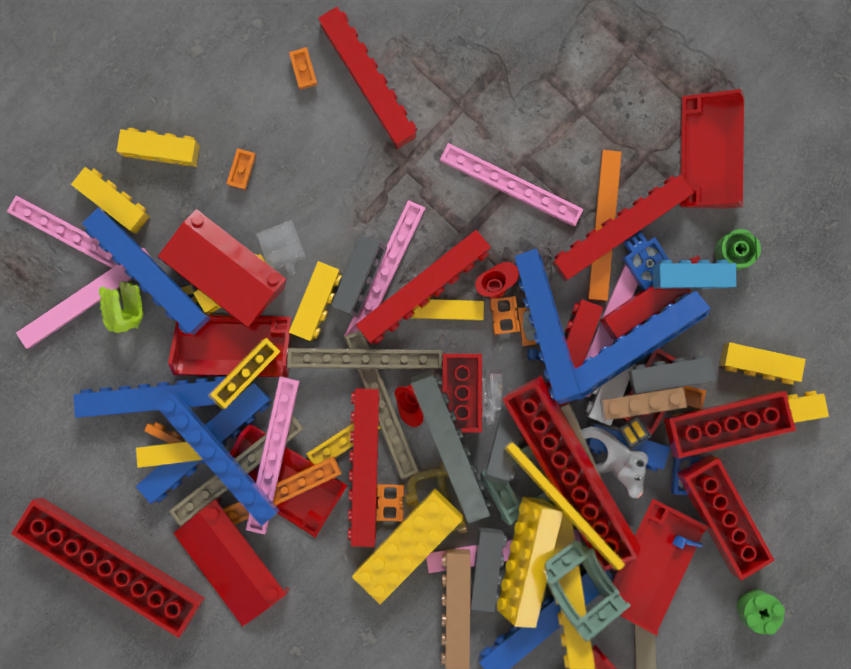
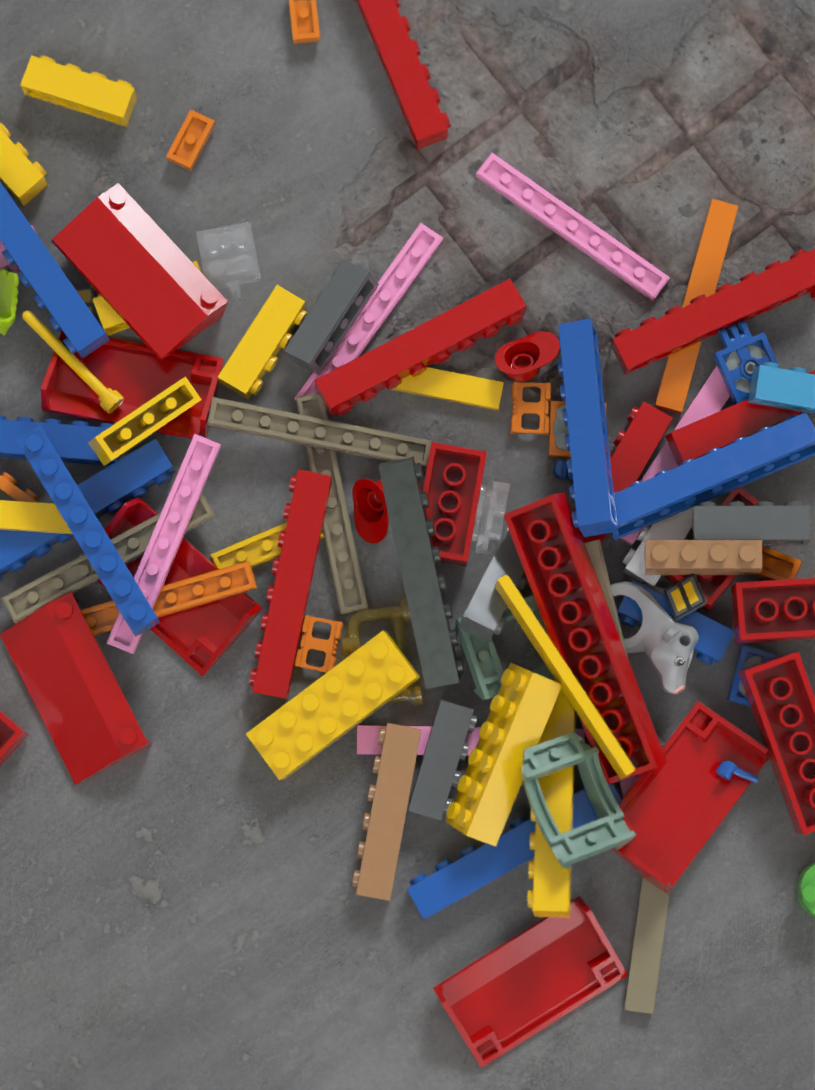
camera: 10 degrees right, 5 degrees down
(216, 359) = (109, 399): none -> yellow piece

